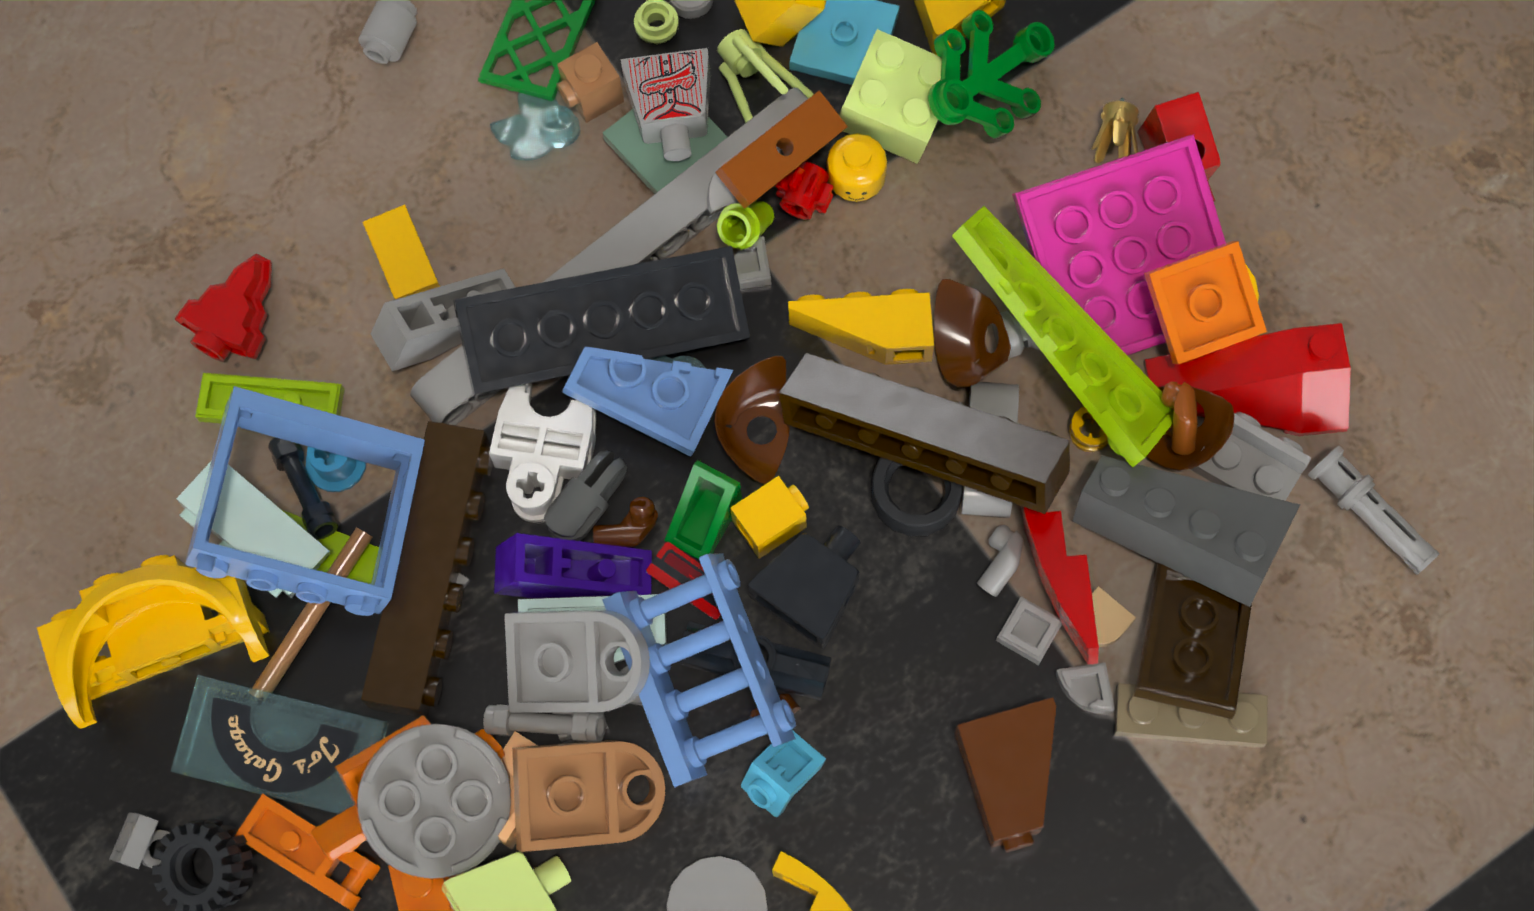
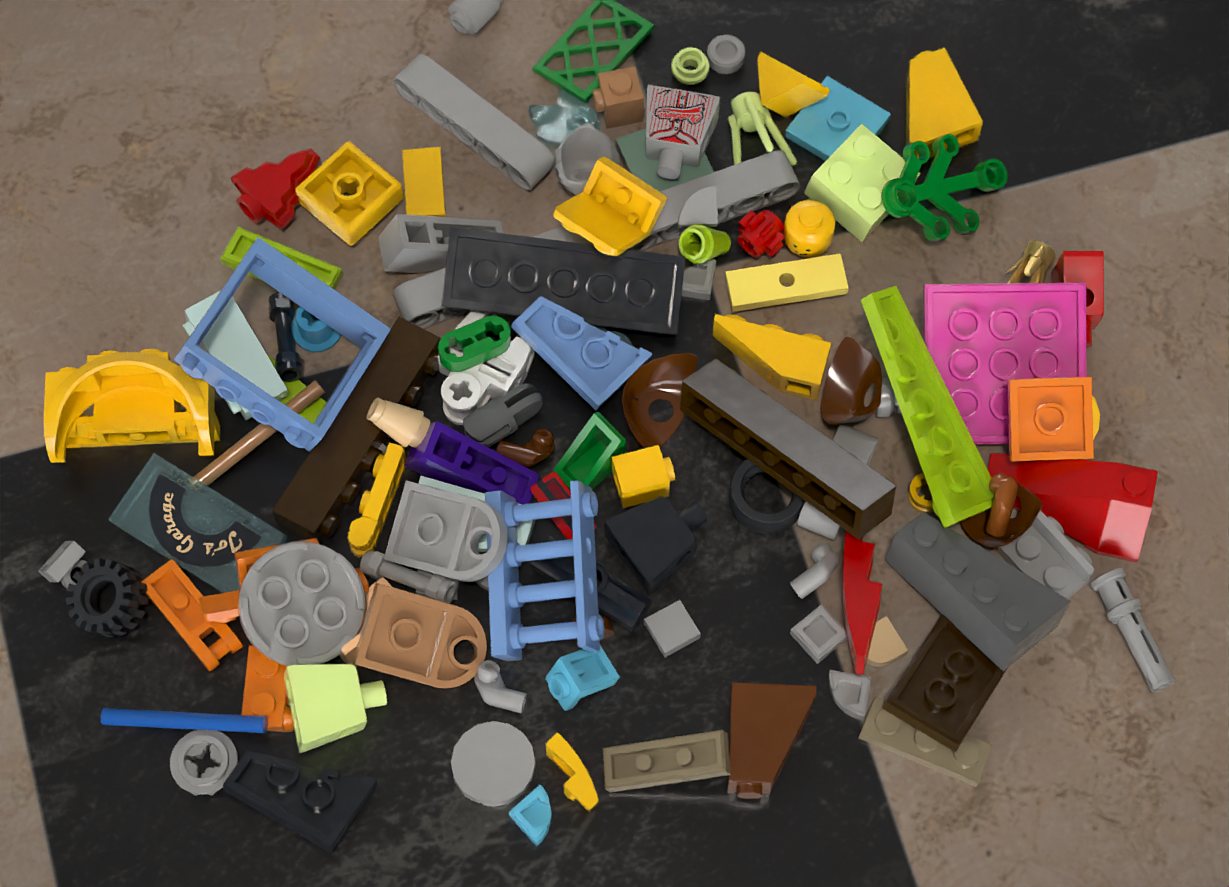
camera: 15 degrees right, 5 degrees down
(311, 267) = (349, 172): none -> yellow brick
(433, 163) = (474, 122): none -> light grey beam
(473, 546) = (400, 422): none -> tan cone
(477, 648) = (377, 502): none -> yellow hinge
(521, 419) = (474, 343): none -> green beam
(579, 169) = (579, 155): none -> light grey hair
(631, 218) = (612, 209): none -> yellow bracket
(688, 822) = (494, 690): none -> light grey arm
(797, 135) = (769, 187): dark orange tile -> none
(863, 680) = (672, 628): none -> light grey tile
(873, 223) = (808, 280): none -> light yellow tile
(914, 840) = (666, 761): none -> dark tan tile

